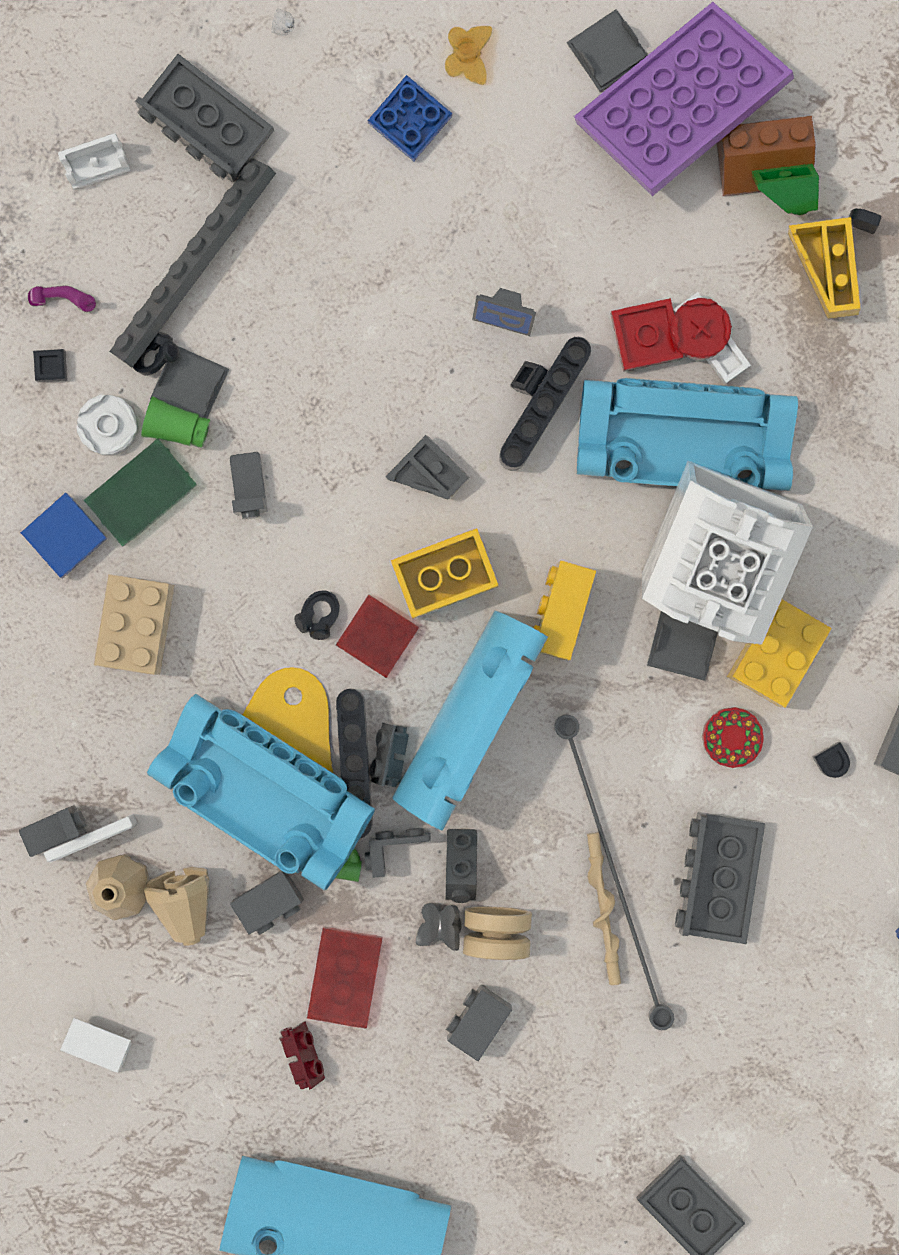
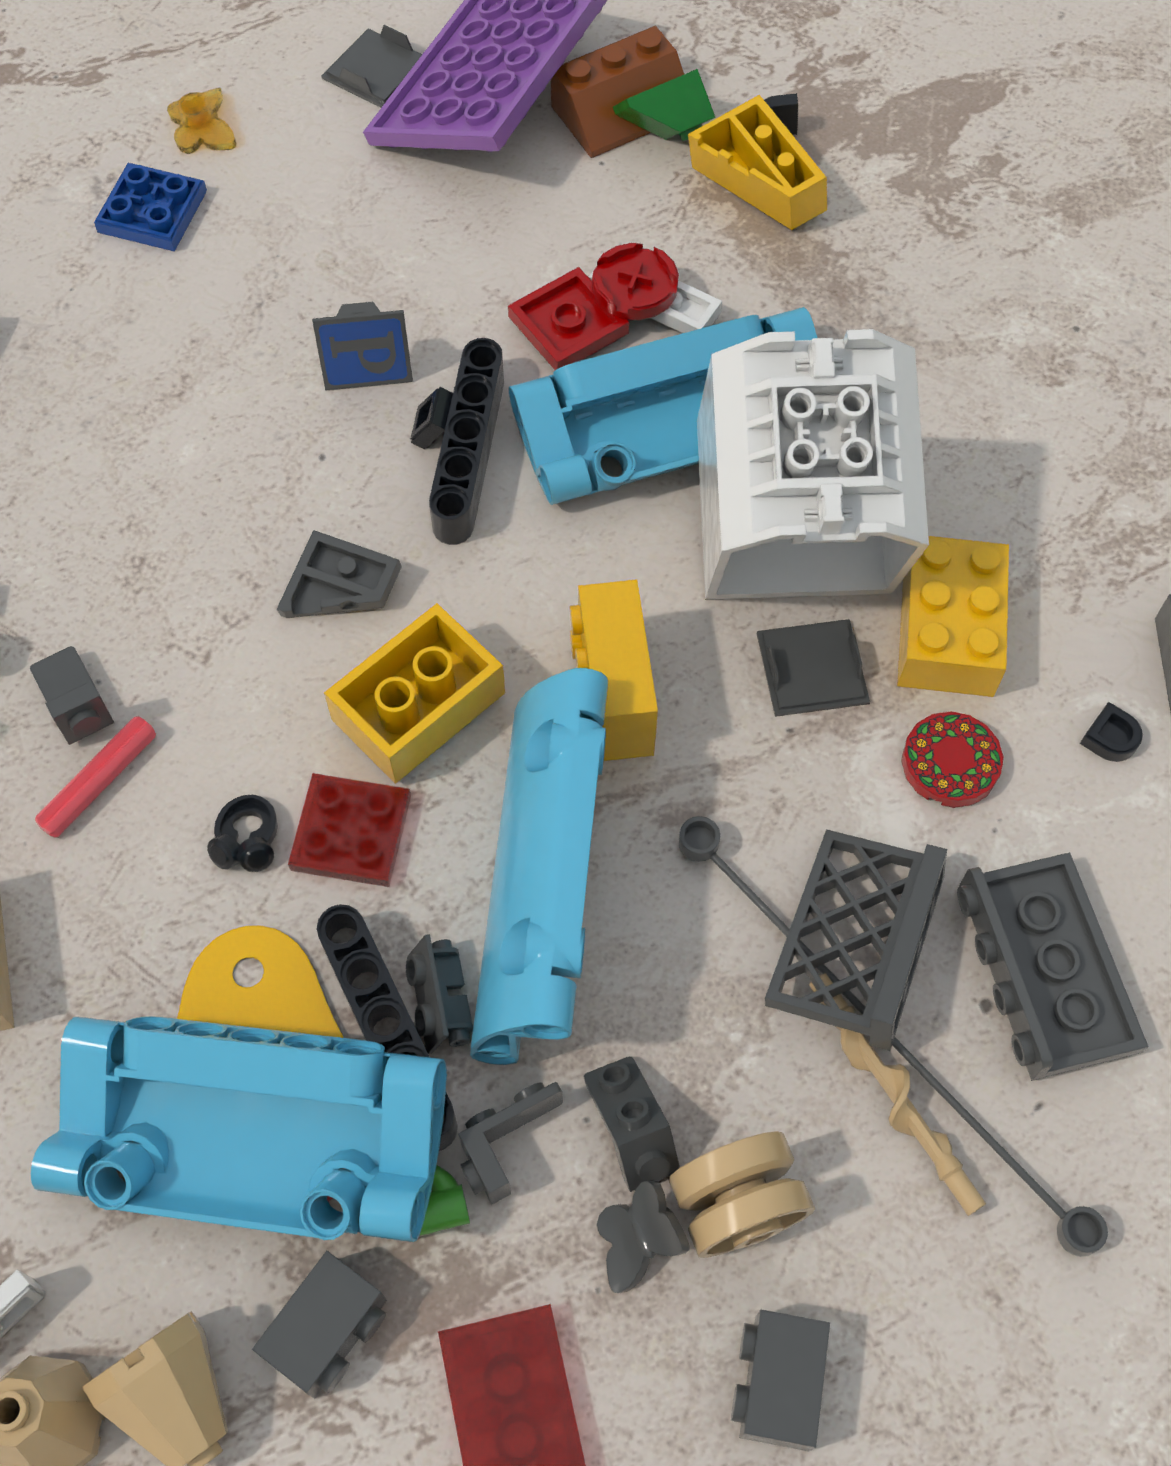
camera: 25 degrees left, 25 degrees down
(247, 543) = (95, 777): none -> coral axle
(644, 838) = (899, 955): none -> dark grey fence

